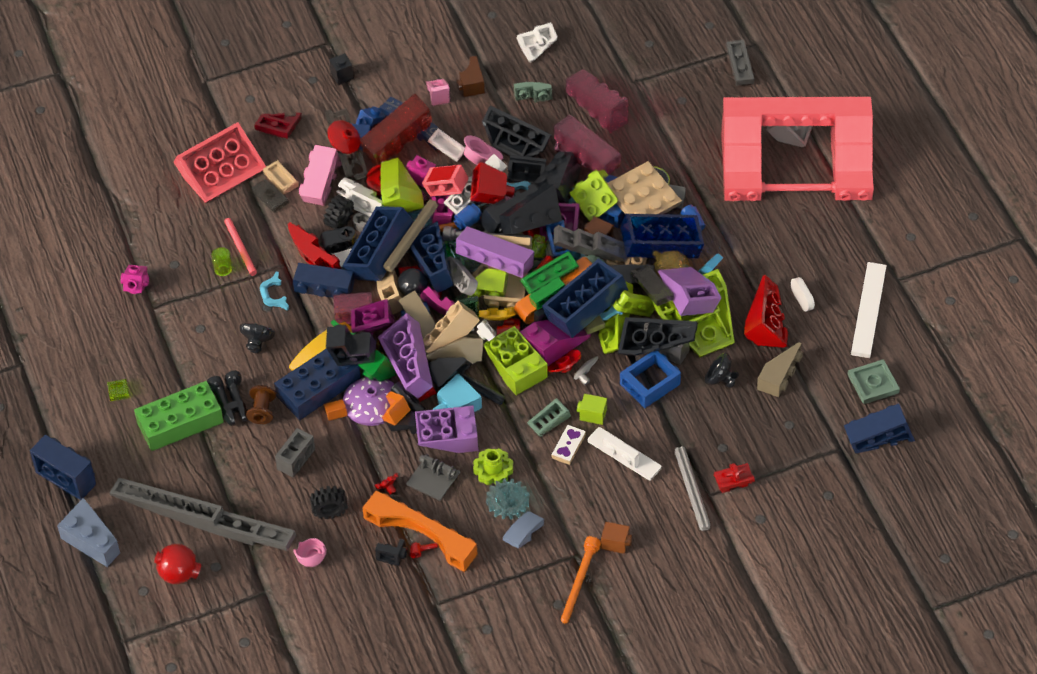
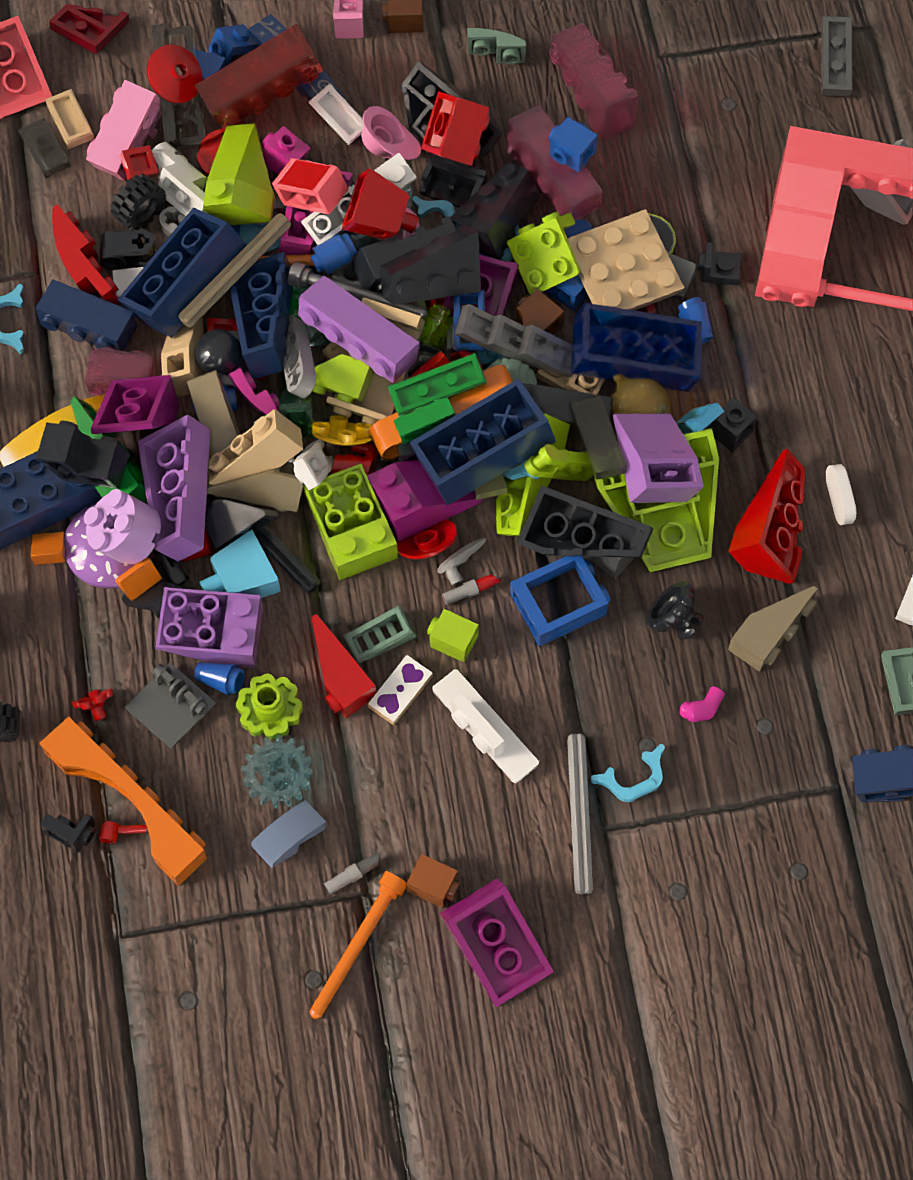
camera: 10 degrees right, 15 degrees up
(334, 188) = (139, 161): none -> red tile
(383, 380) = (122, 527): none -> lavender brick
(459, 456) = (220, 676): none -> blue cone
(522, 137) = (455, 128): none -> red slope
(533, 443) = (344, 680): none -> red slope
(566, 544) = (352, 873): none -> light grey piece
(596, 130) = (572, 144): none -> blue brick
(596, 384) = (470, 589): none -> light grey piece
(661, 561) = (497, 942): none -> magenta slope
(699, 188) = (719, 266): none -> black bracket
(724, 452) = (630, 794): none -> medium azure helmet
(730, 268) = (733, 425): none -> black brick
(734, 477) = (651, 811): red hips -> none
(750, 421) = (704, 709): none -> dark pink arm

